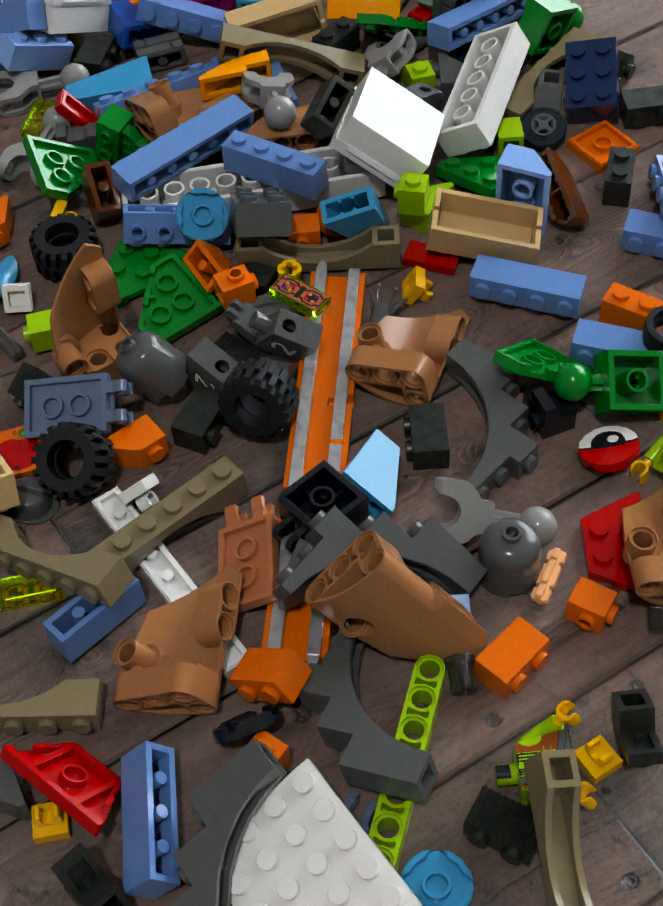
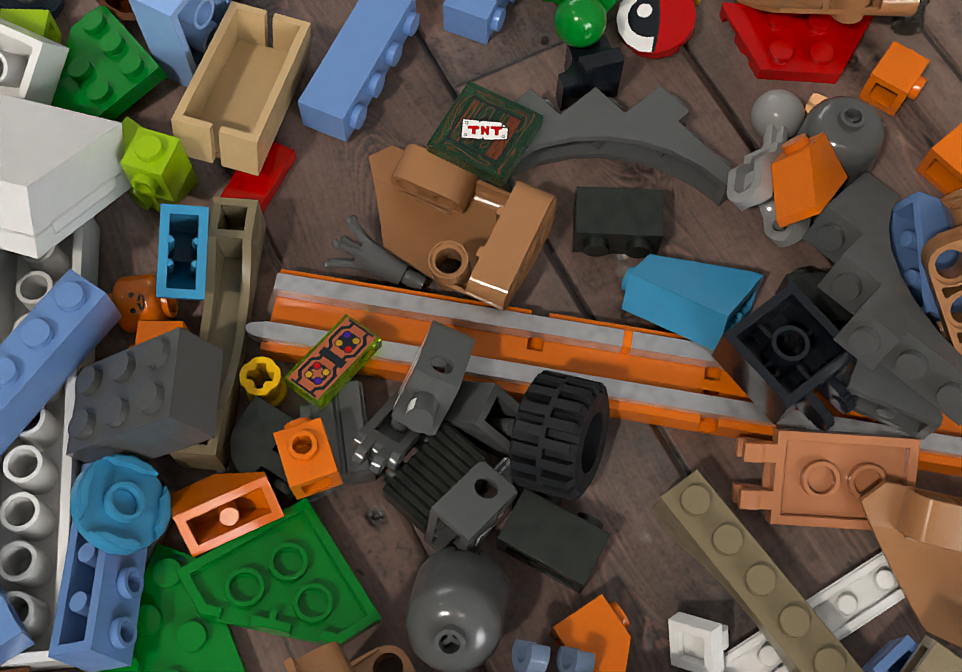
camera: 90 degrees left, 15 degrees up
(416, 286) = (321, 205): yellow tile -> none
(461, 514) = (805, 178): none -> orange slope
(471, 347) = (485, 133): none -> clear green tile
(533, 360) = (518, 59): green plate -> none

